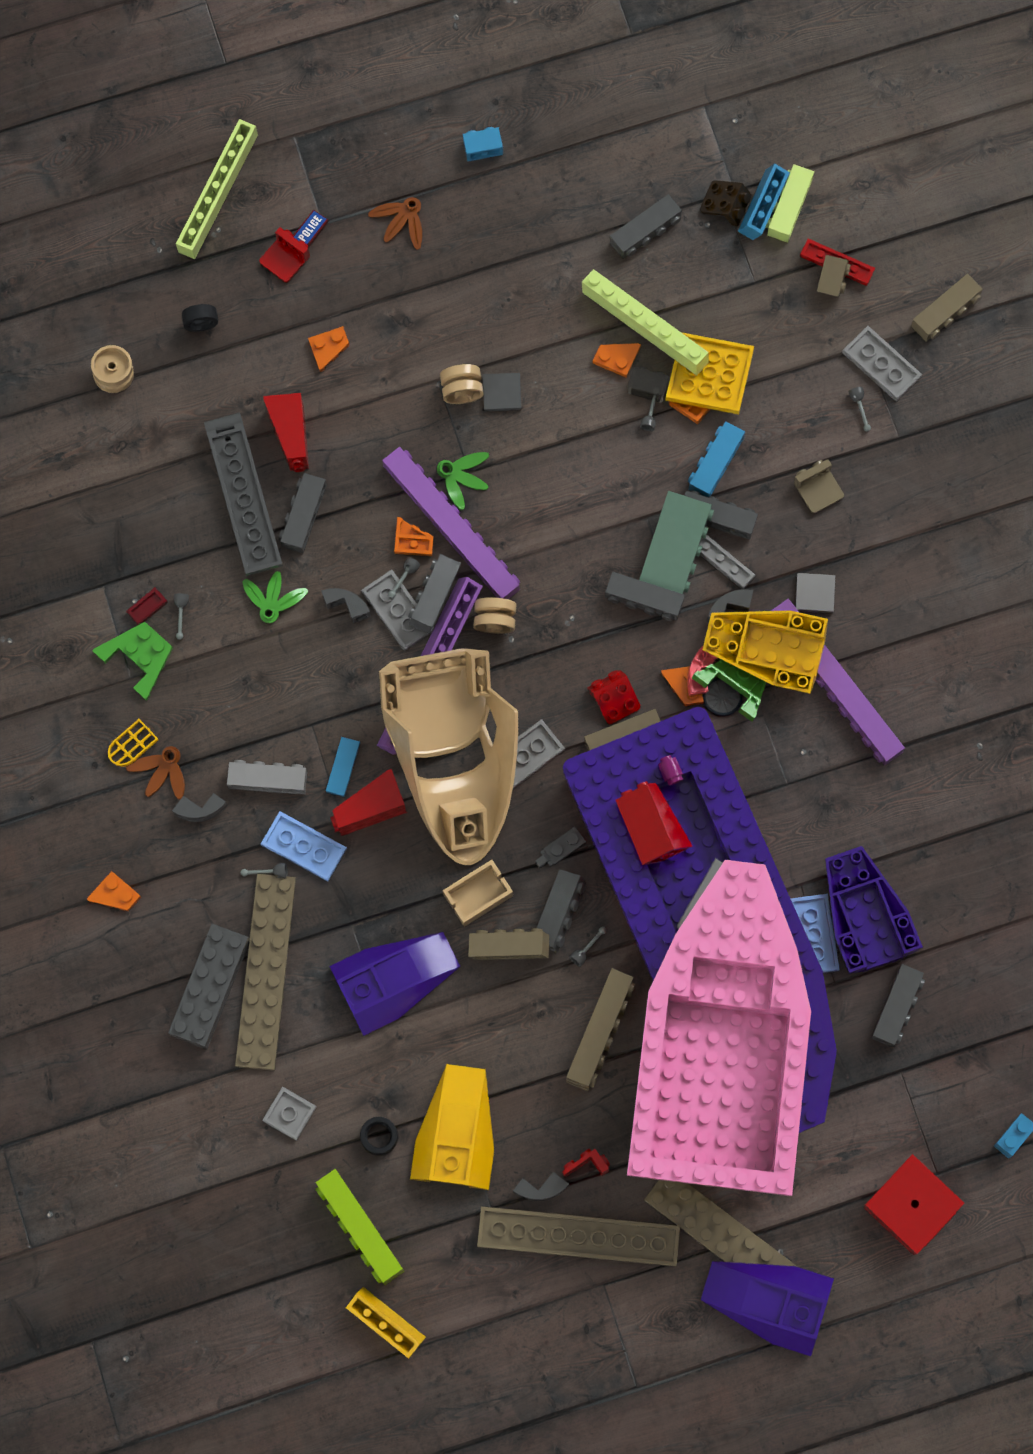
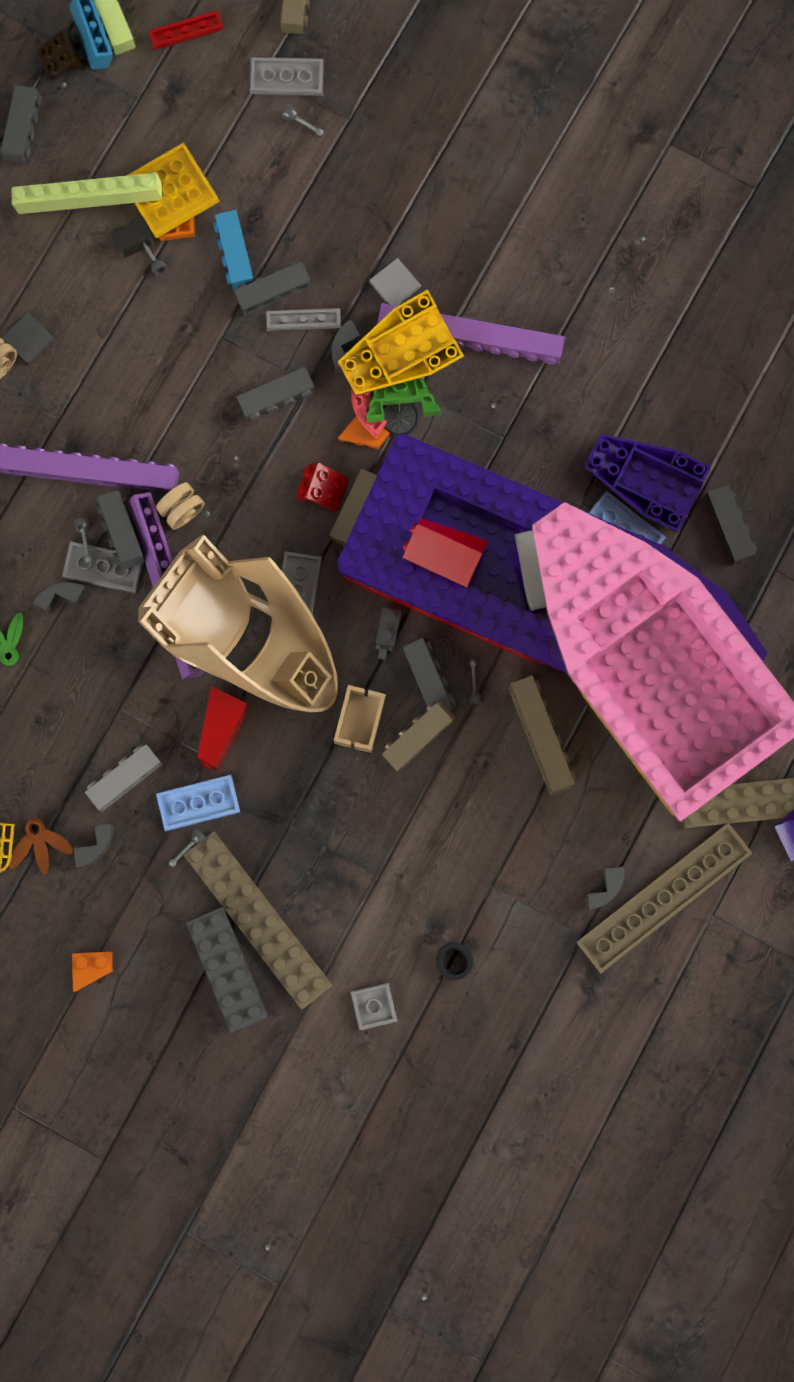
camera: 45 degrees left, 5 degrees up
(343, 766) = (172, 718): dark azure tile -> none
(357, 1223) = (506, 1040): lime brick -> none
(385, 1322) = (589, 1090): yellow brick -> none
(393, 978) = (356, 837): dark purple wedge -> none
(412, 540) = (65, 506): orange wing -> none
(455, 474) = (52, 429): bright green plant -> none
(456, 1132) = (507, 905): yellow wedge -> none
(600, 1163) = (630, 830): red bracket -> none
(617, 357) = (89, 239): orange wing -> none
(670, 770) = (421, 499): magenta brick -> none
(676, 542) = (263, 333): sand green brick -> none
(818, 486) = (325, 204): dark tan bracket -> none
(833, 276) = (193, 41): dark tan brick -> none

